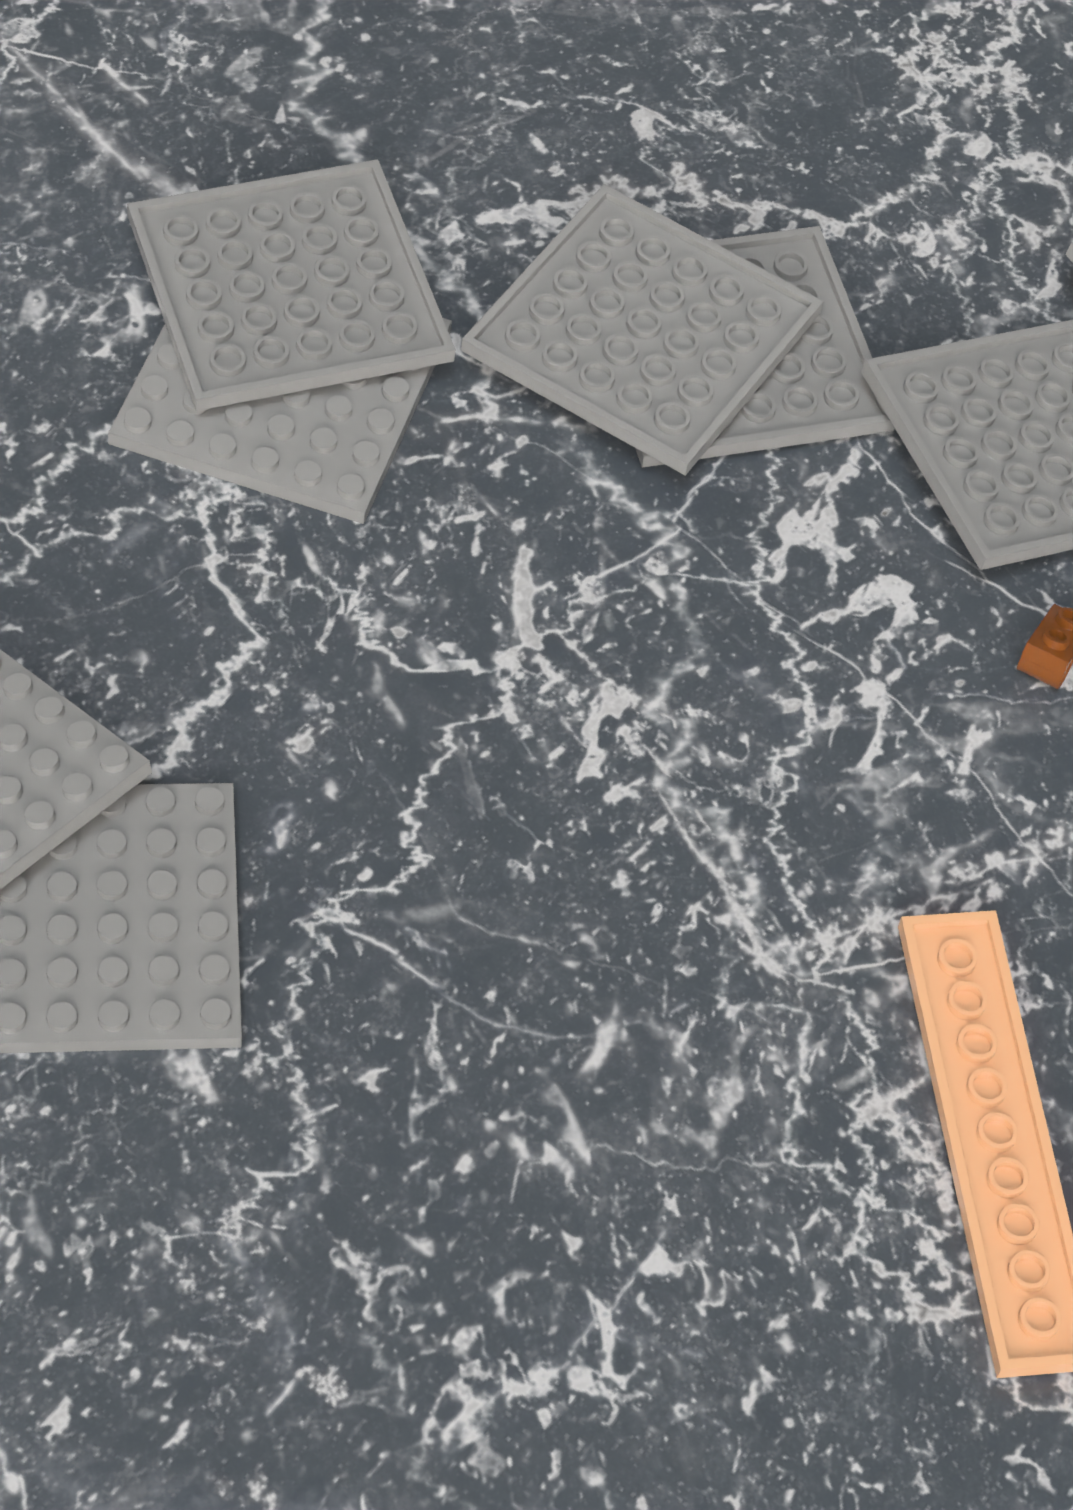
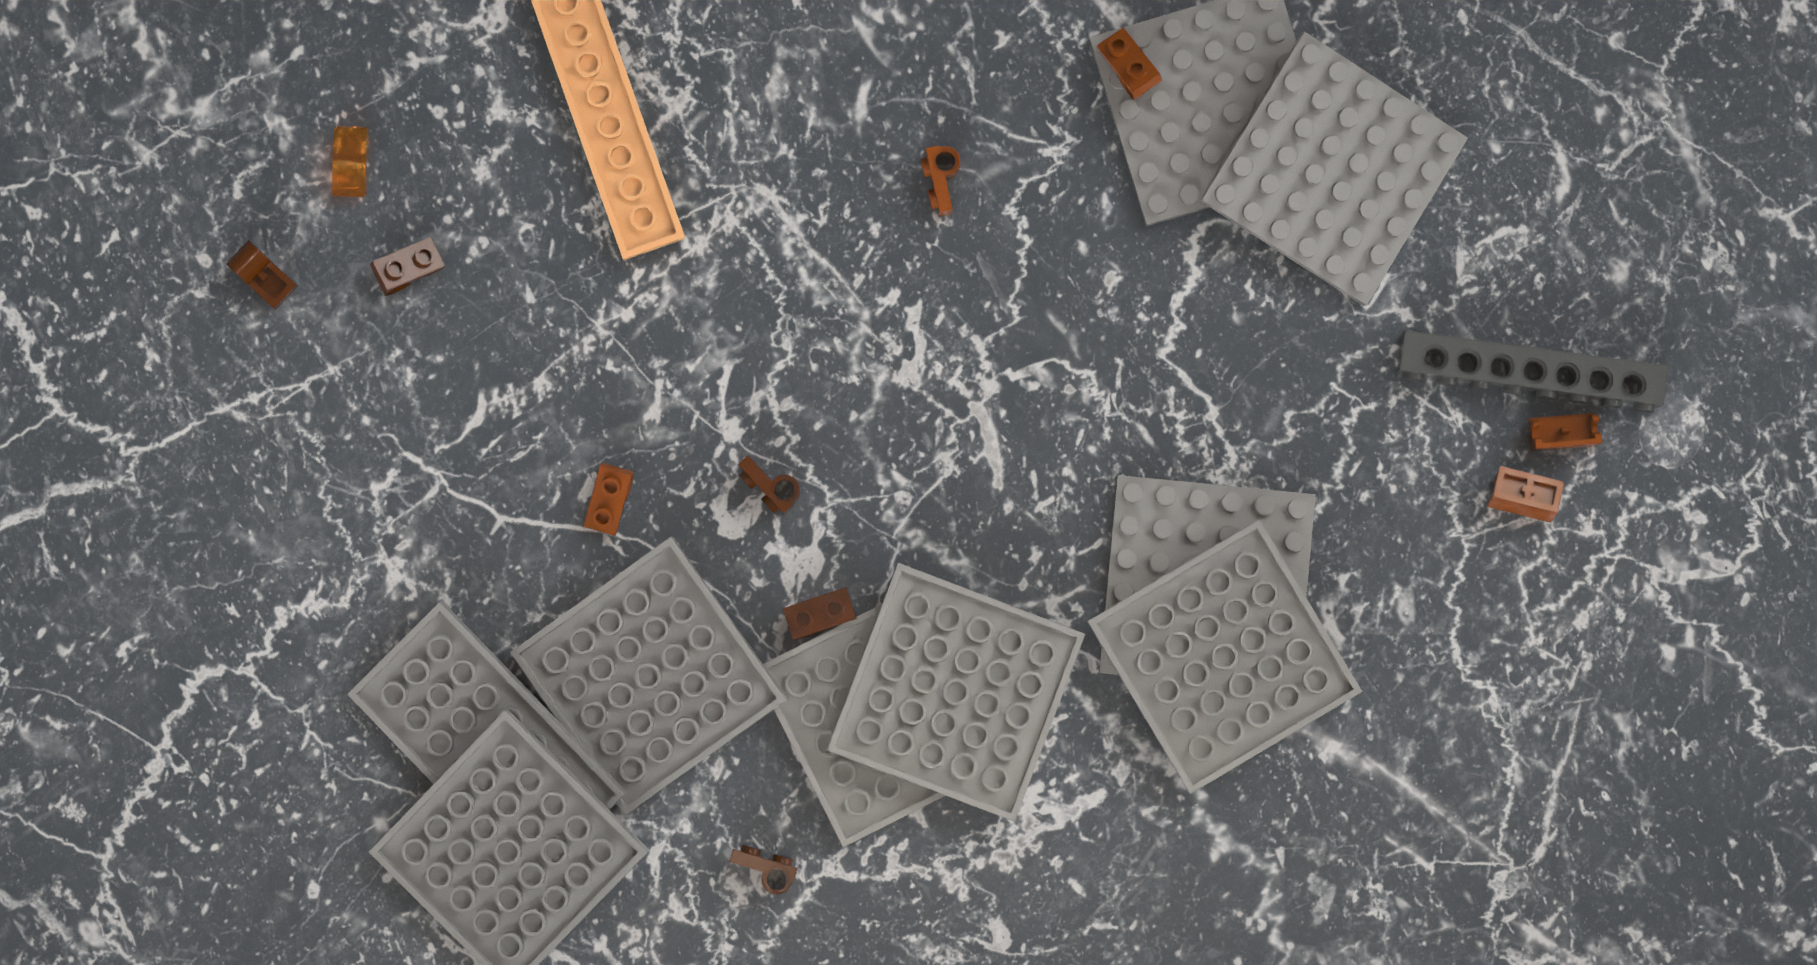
camera: 175 degrees right, 30 degrees up
(196, 965) = (1129, 63): none -> dark orange plate
(513, 908) = (939, 195): none -> dark orange plate
(811, 450) = (819, 613): none -> reddish brown plate
(828, 598) = (753, 476): none -> reddish brown plate
(908, 227) = (751, 858): none -> reddish brown plate

